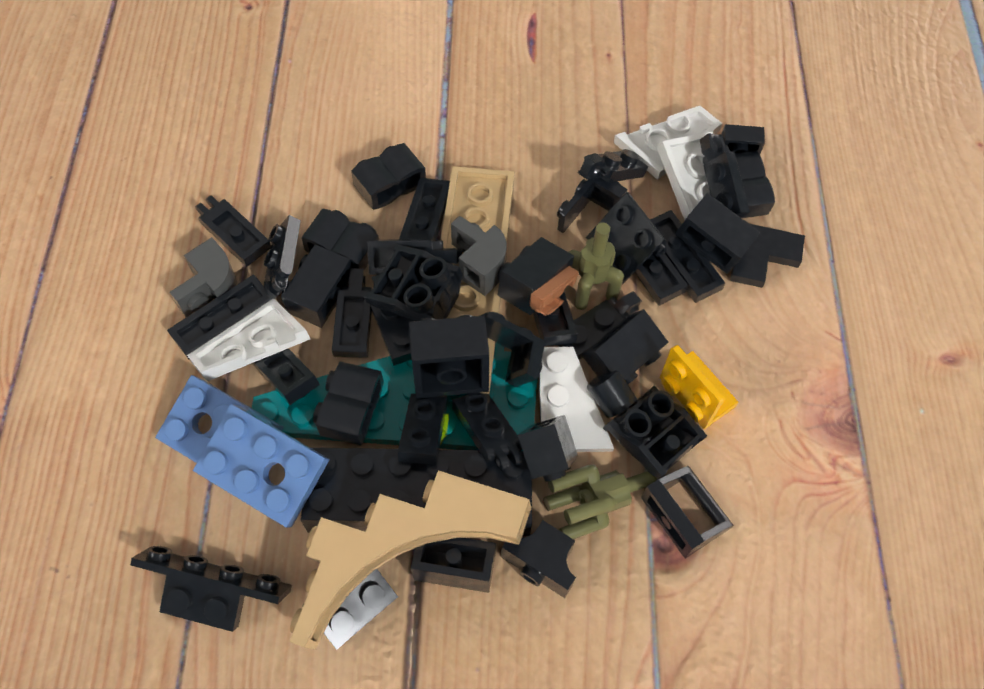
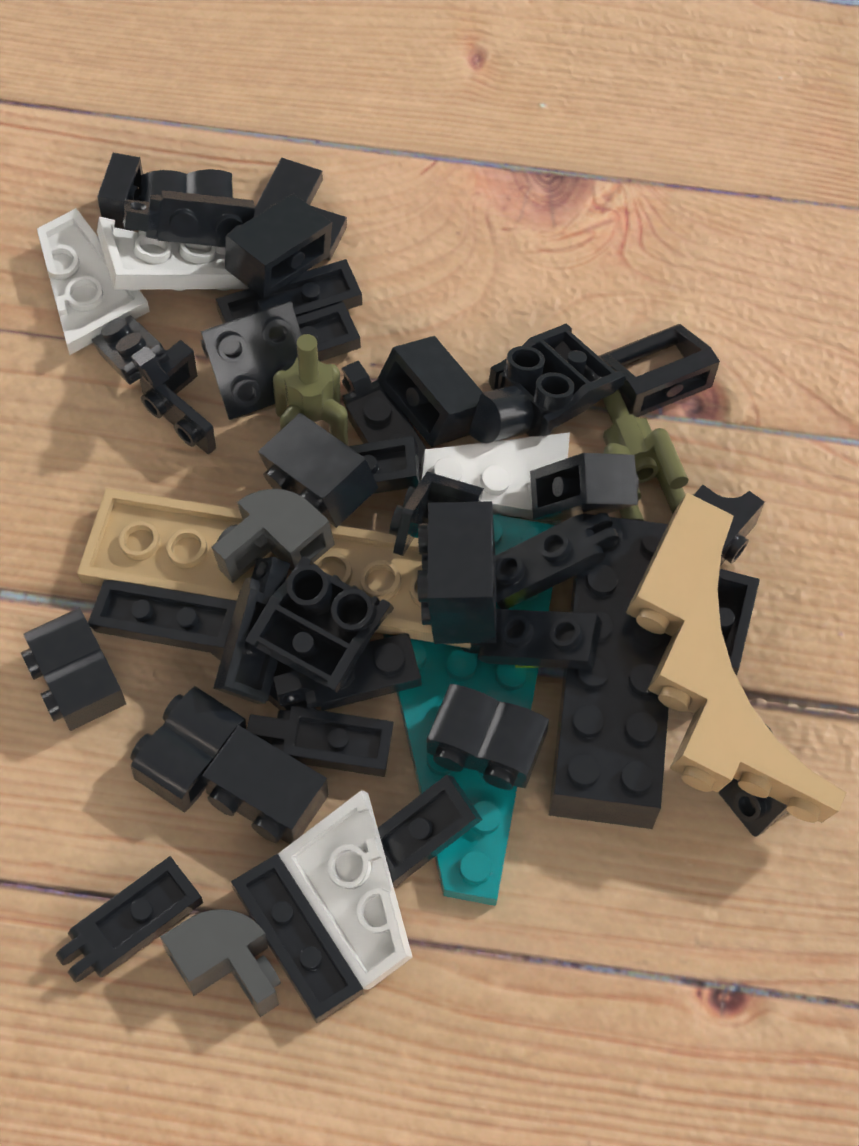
camera: 85 degrees left, 0 degrees up
(205, 590) = (733, 957): black bracket -> none
(242, 451) = (543, 893): medium blue bracket -> none
(281, 256) = (209, 833): black hinge -> none
(546, 298) = (374, 453): nougat tile -> none
(696, 387) = (497, 322): yellow bracket -> none

